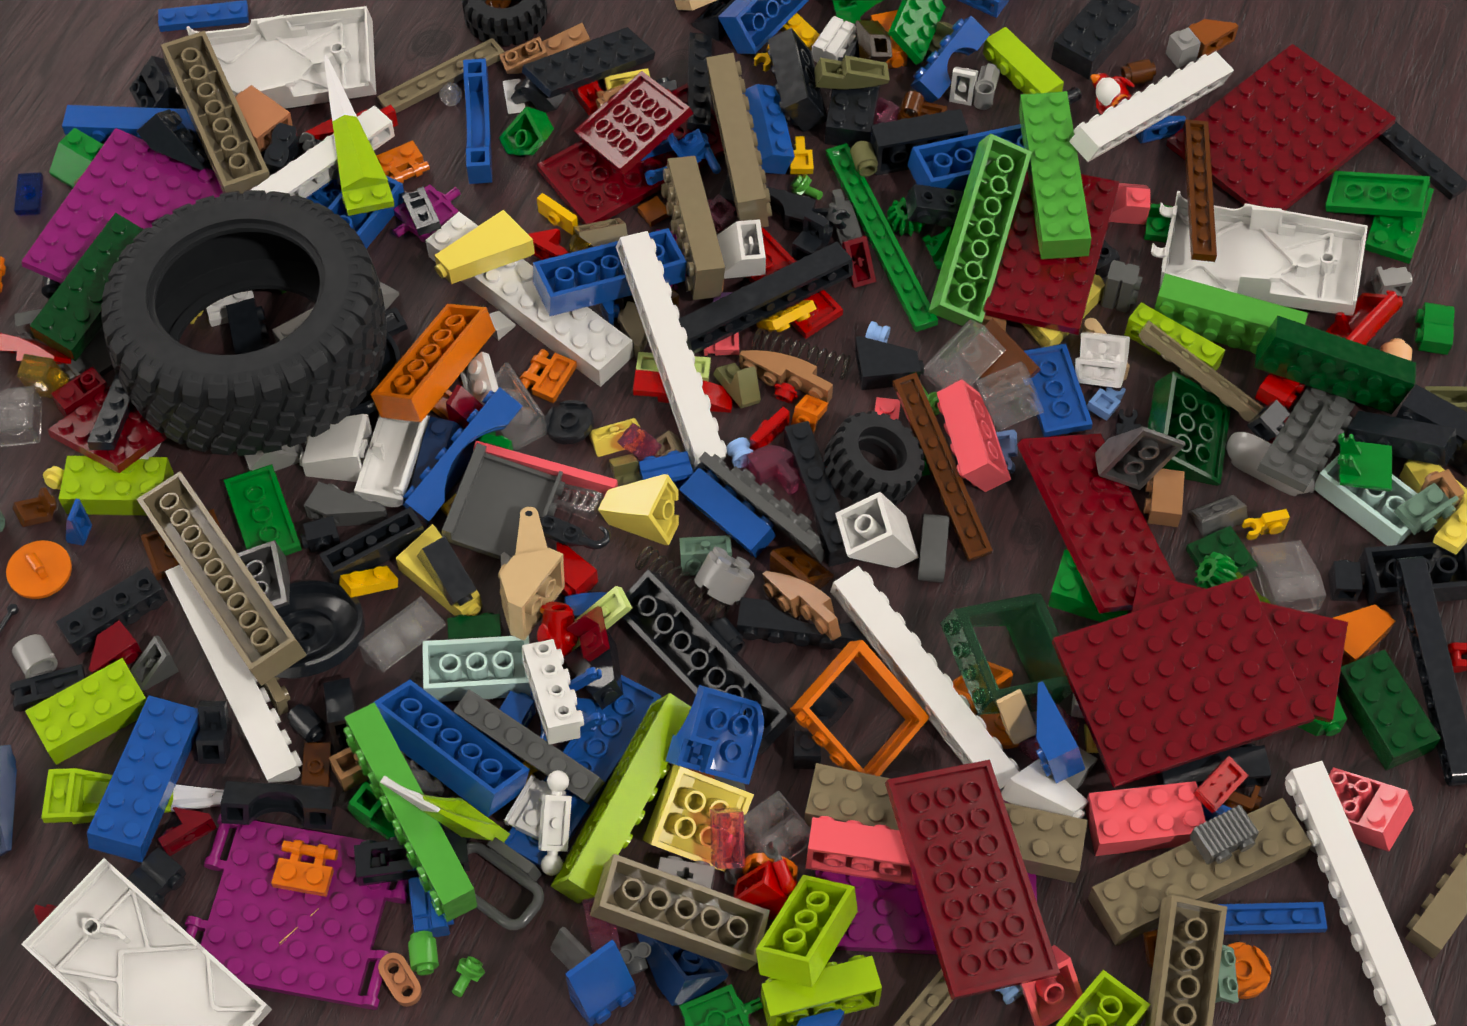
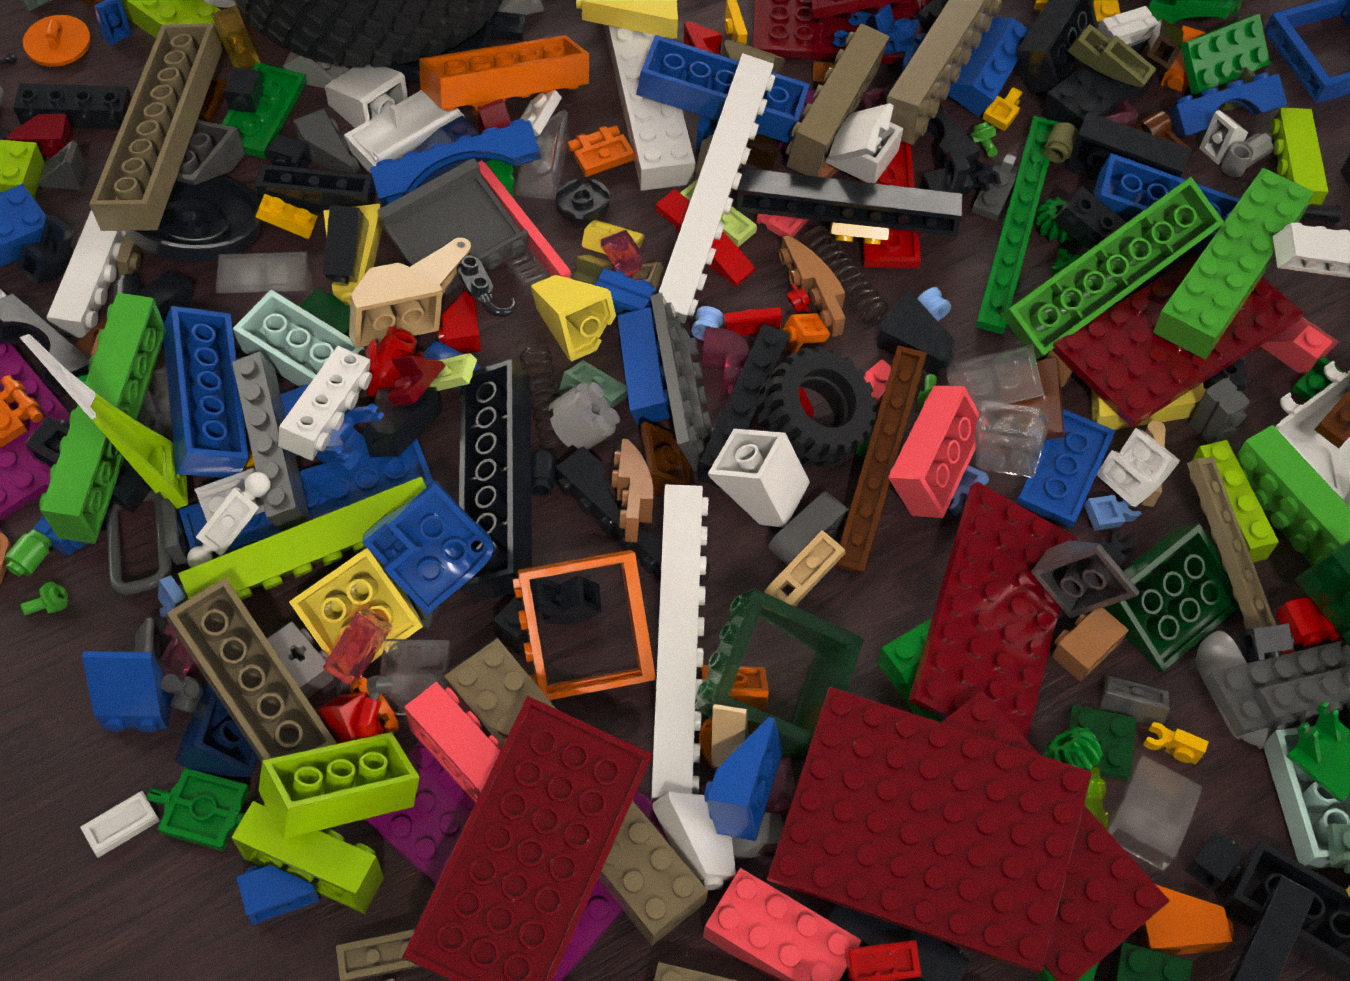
camera: 35 degrees right, 0 degrees up
(196, 470) = (236, 37): none -> clear yellow brick
(243, 507) = (244, 90): none -> black brick
(501, 324) = (600, 83): white slope -> none
(567, 905) = (170, 595): none -> medium blue plate
(739, 240) = (860, 132): none -> white slope
(740, 384) = (762, 265): olive slope -> none
(862, 264) = (974, 229): dark red slope -> none
(957, 575) = (807, 569): none -> tan plate

